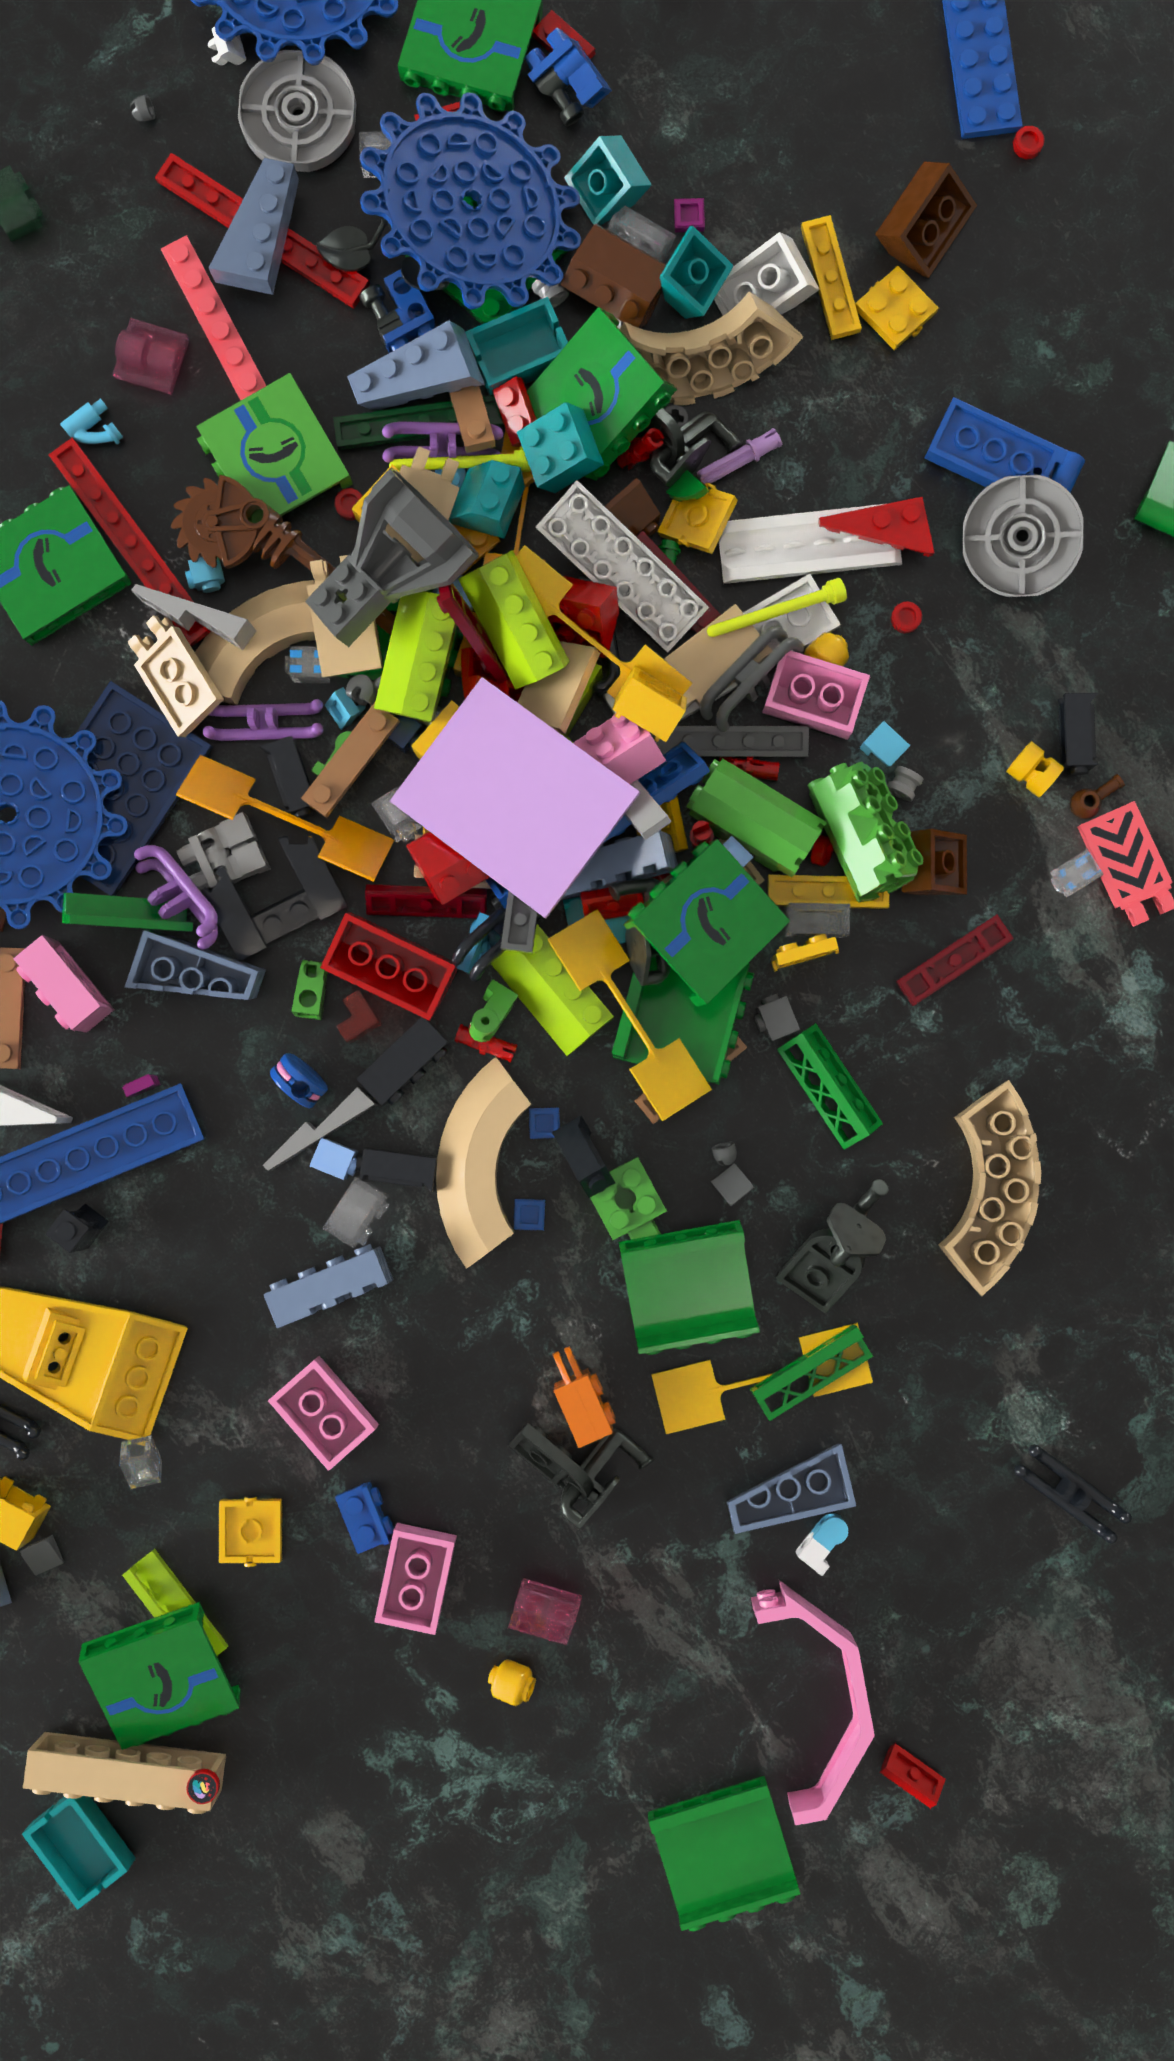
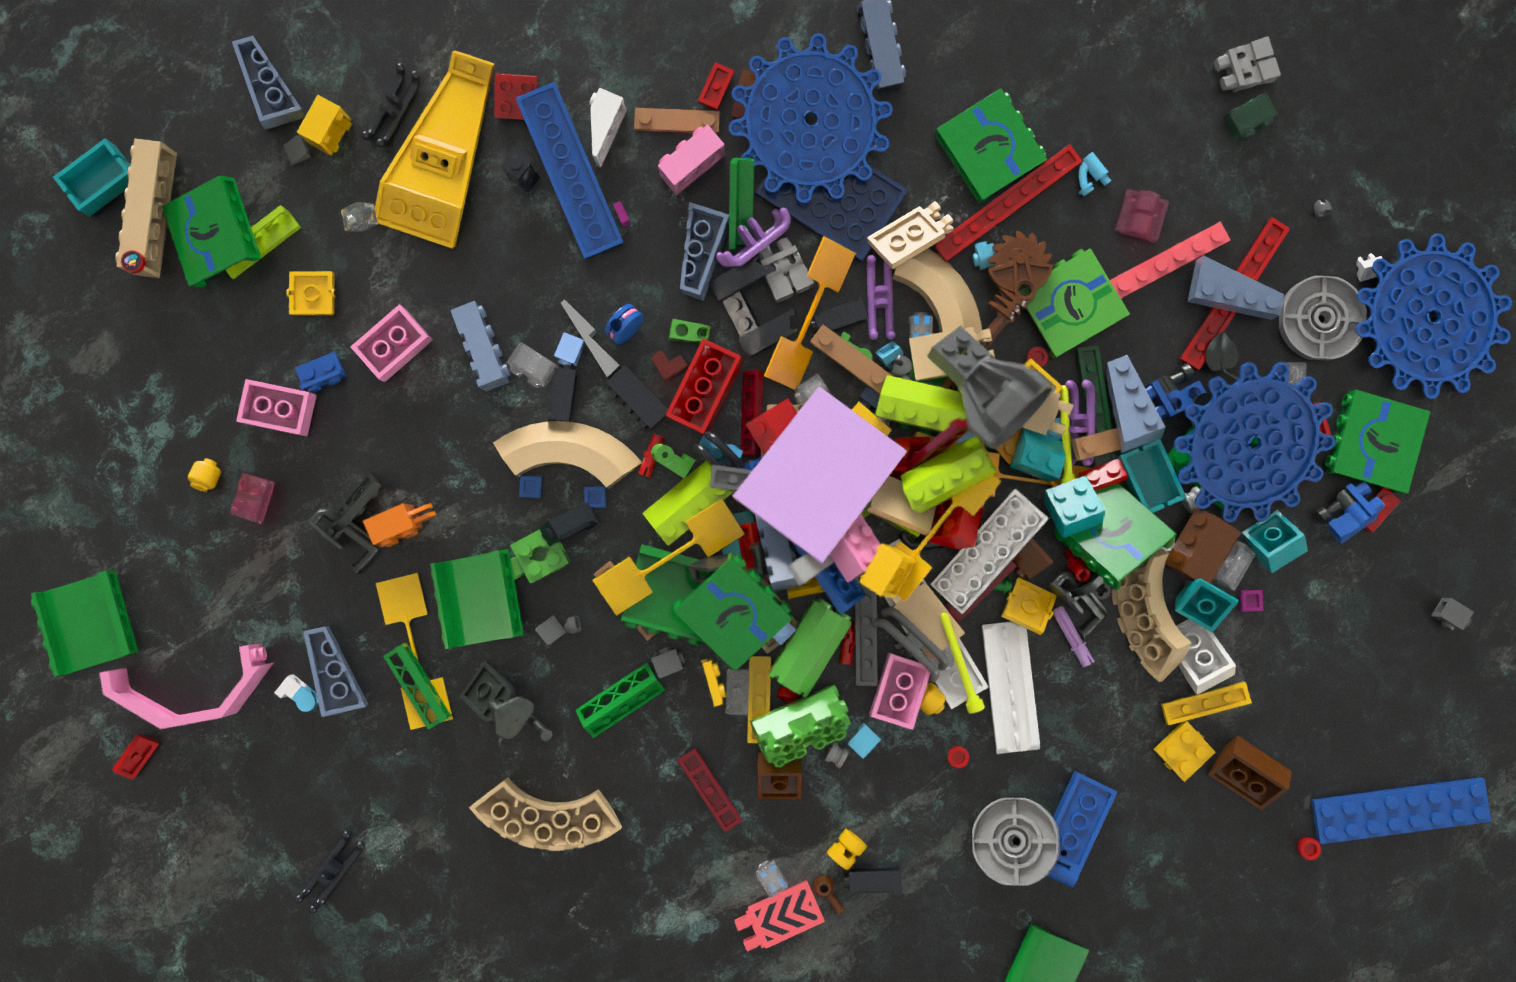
camera: 80 degrees right, 0 degrees up
(185, 613) = (954, 241): light grey slope -> none
(687, 488) = (1049, 598): green tile -> none
(701, 832) = (798, 608): red pin -> none
(896, 523) = (1024, 748): red wing -> none

